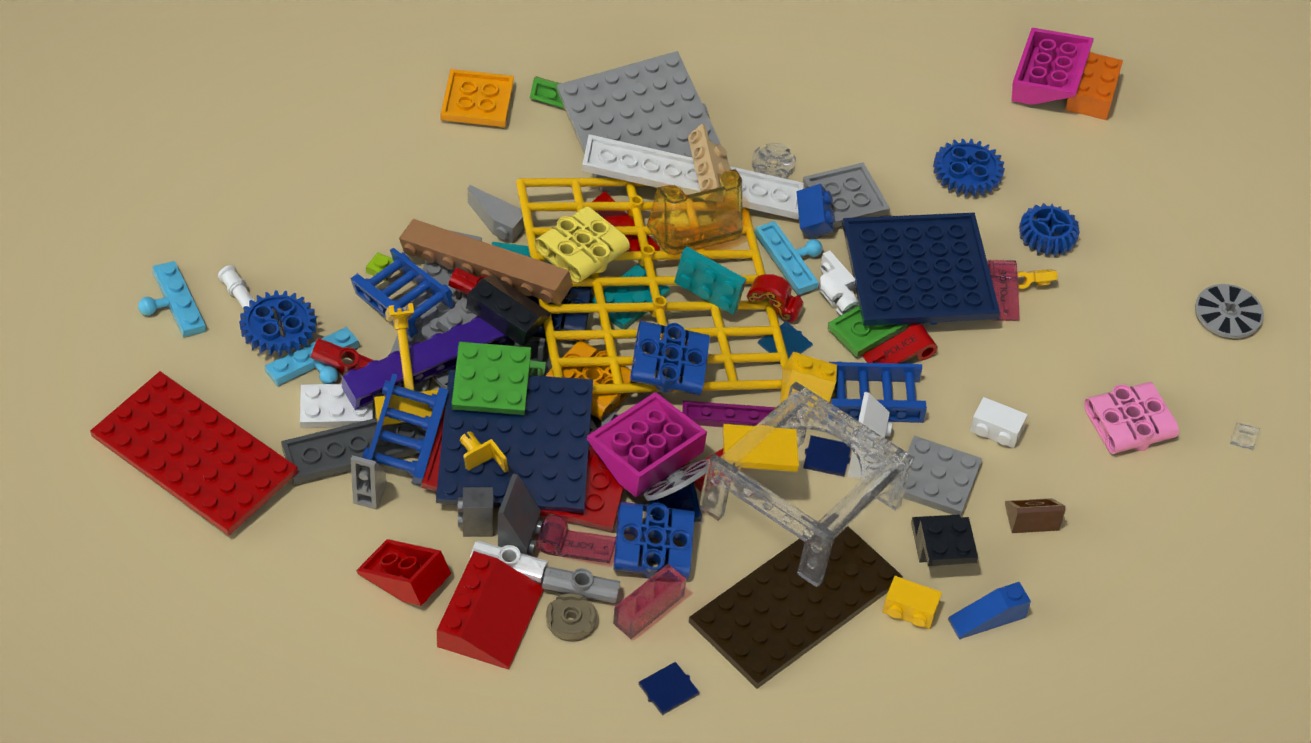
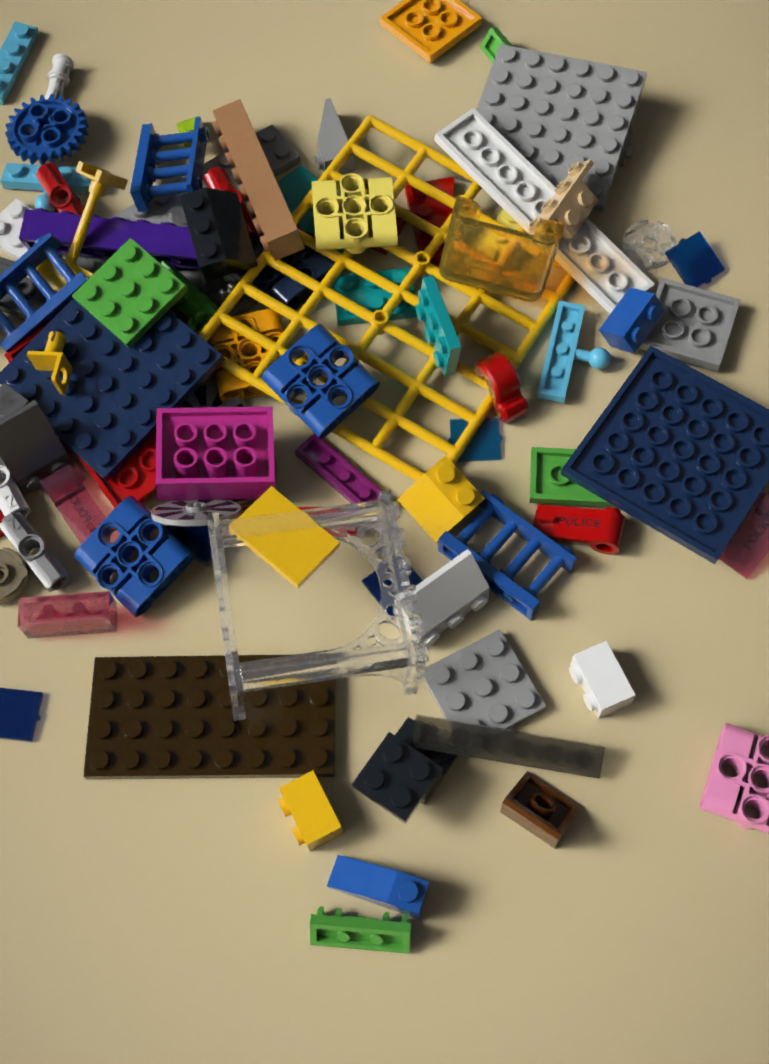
camera: 50 degrees right, 15 degrees up
(811, 155) = (695, 260): none -> clear blue piece
(837, 284) = (580, 412): white plate -> none
(986, 488) = (507, 746): none -> clear smoke plate
(1005, 641) = (360, 932): none -> bright green plate

